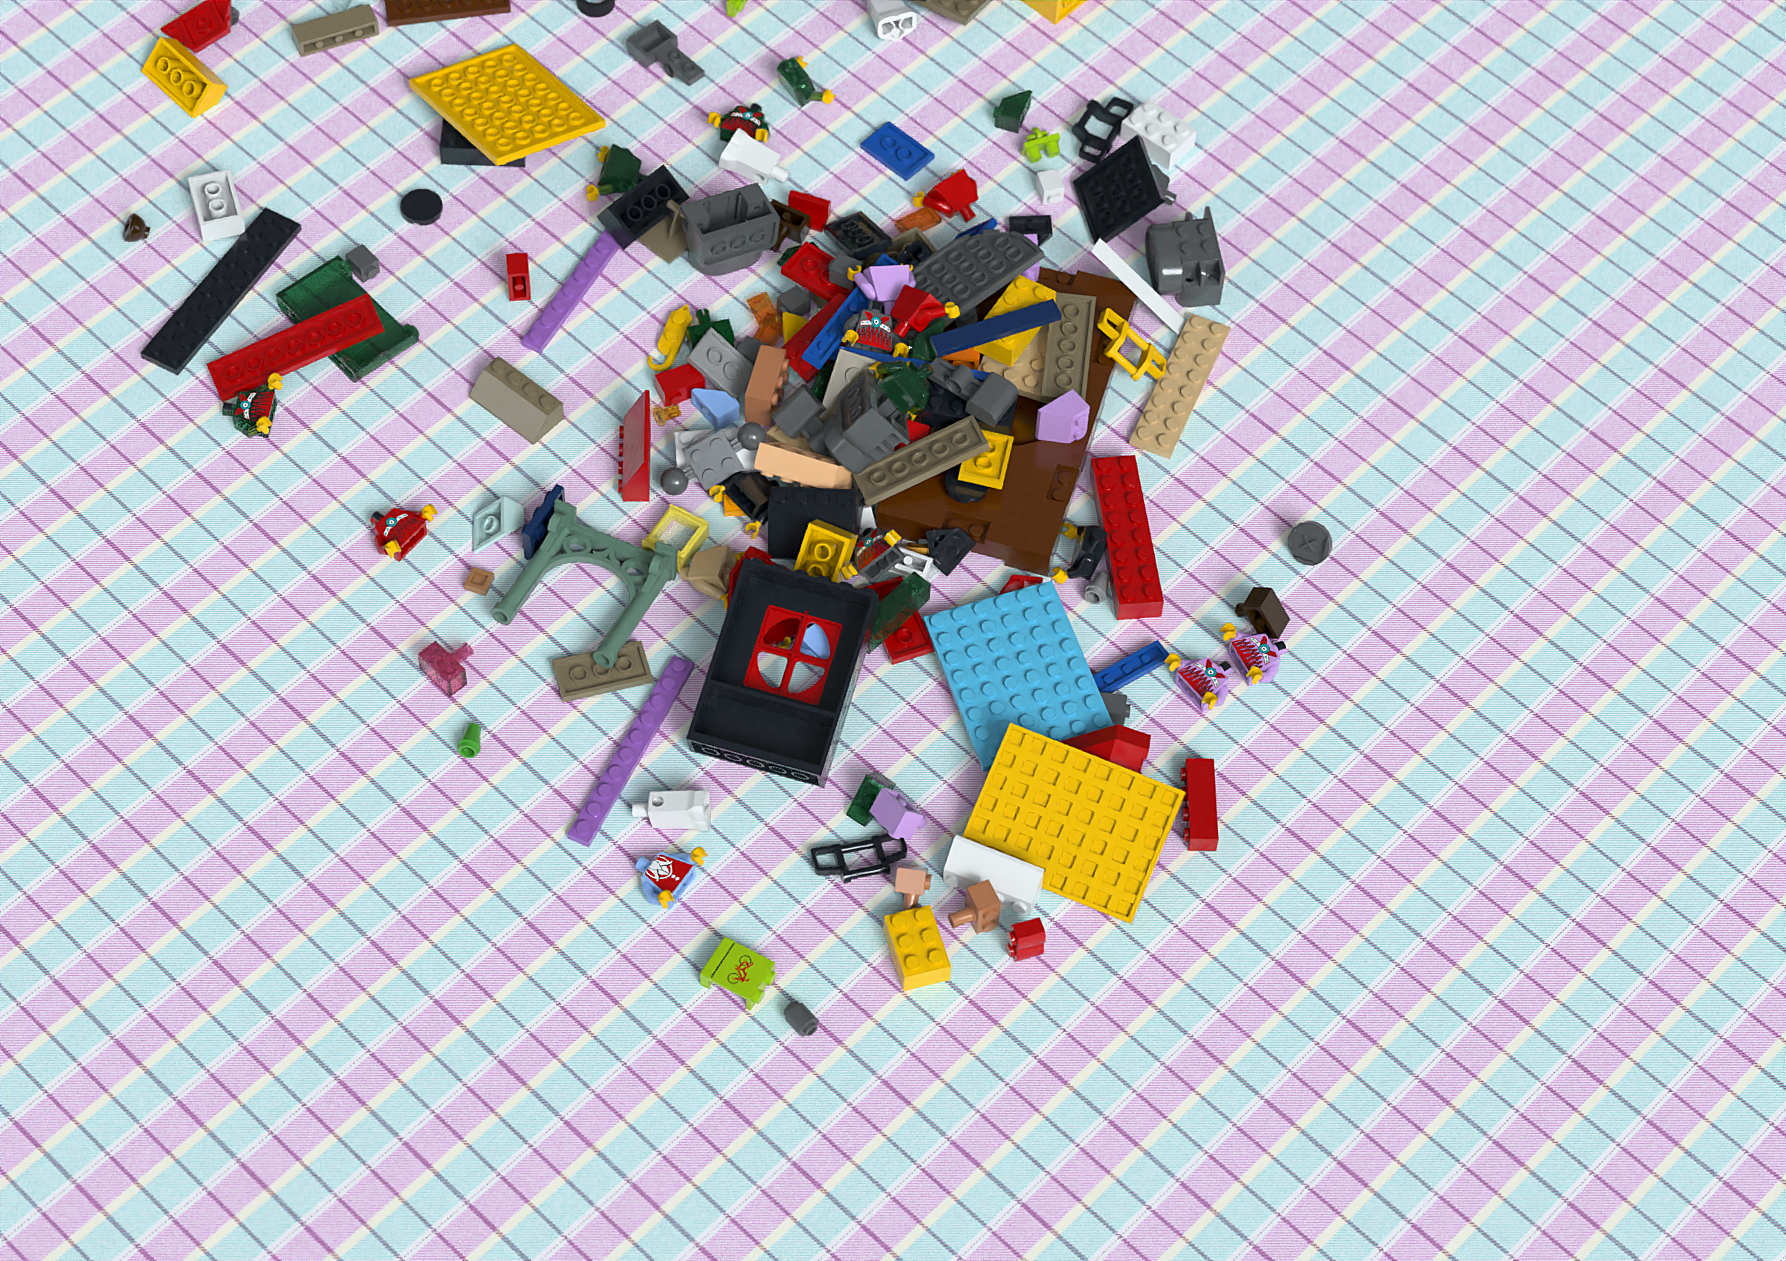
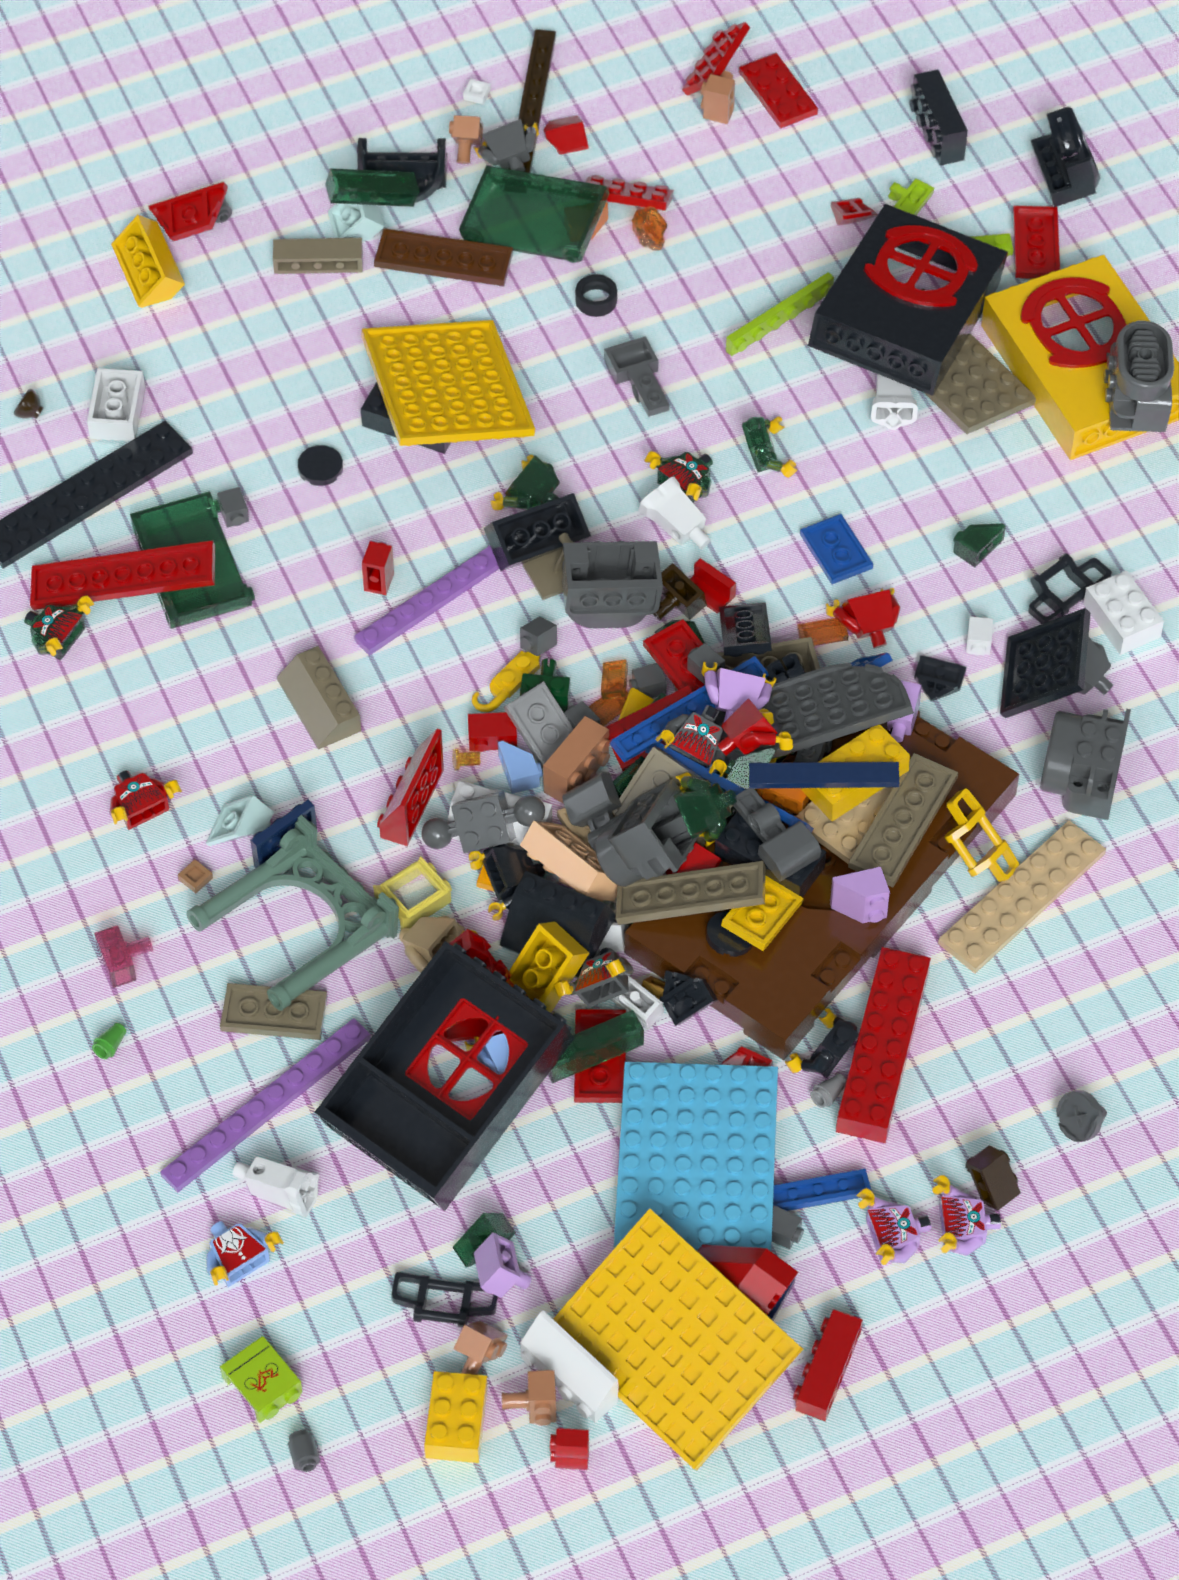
camera: 25 degrees right, 0 degrees up
(683, 293) = (538, 636): none -> dark grey brick
(1040, 141) = (990, 583): lime hips -> none
(1139, 286) = (1017, 774): white sticker -> none

